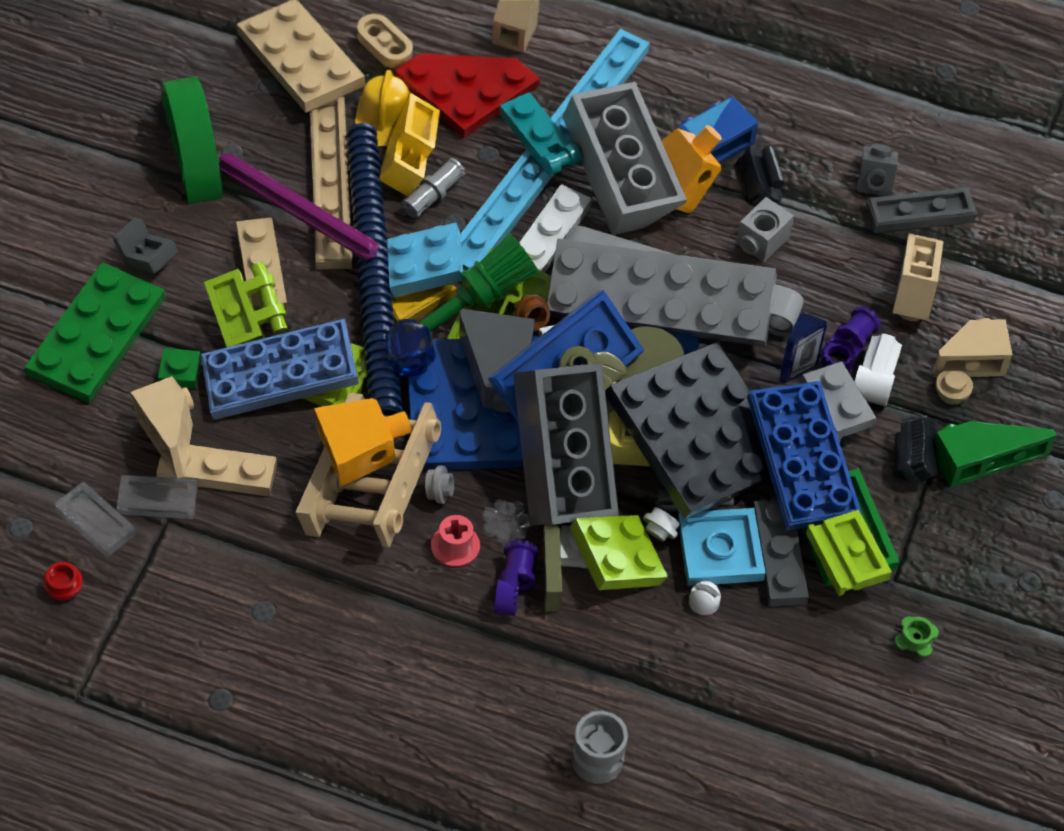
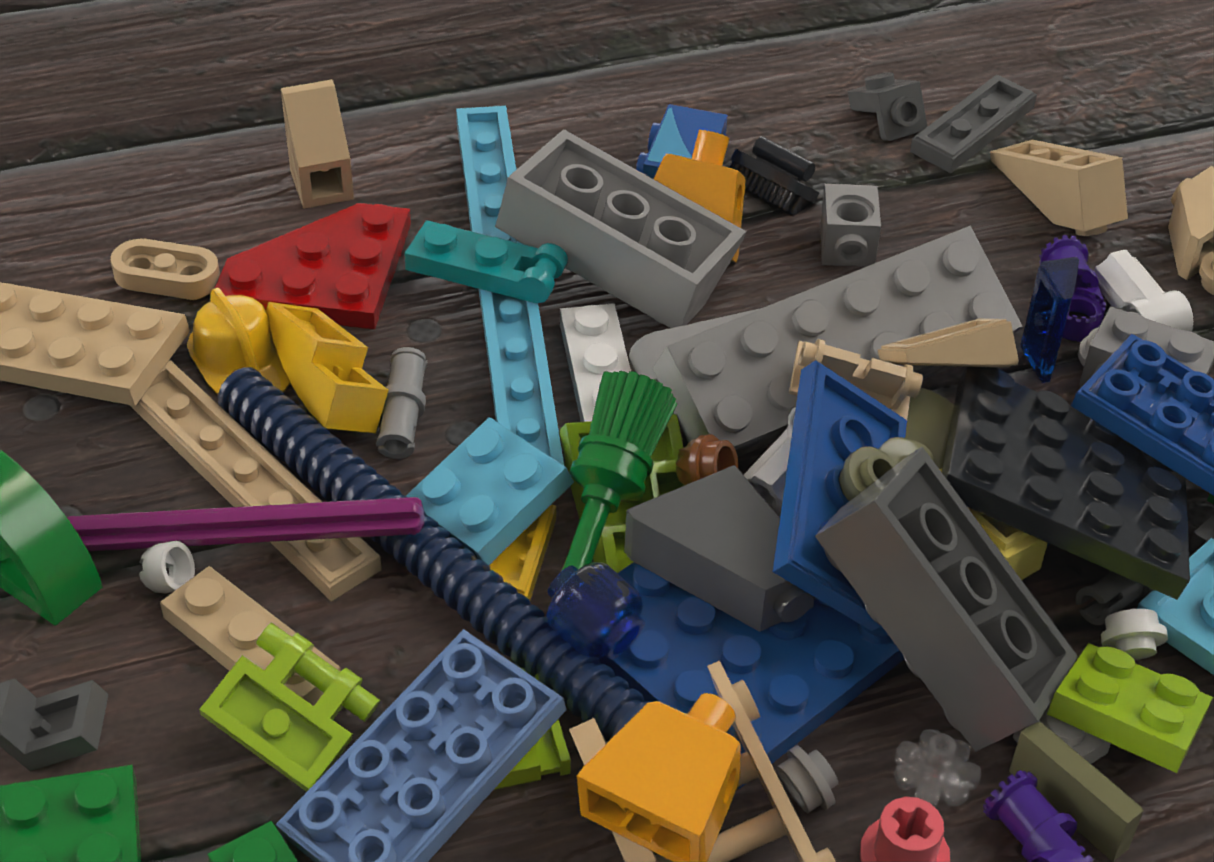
camera: 35 degrees left, 10 degrees down
(258, 200) = (165, 555): none -> white hinge
(637, 313) = (880, 379): none -> tan hinge
(703, 328) = (966, 344): none -> tan slope

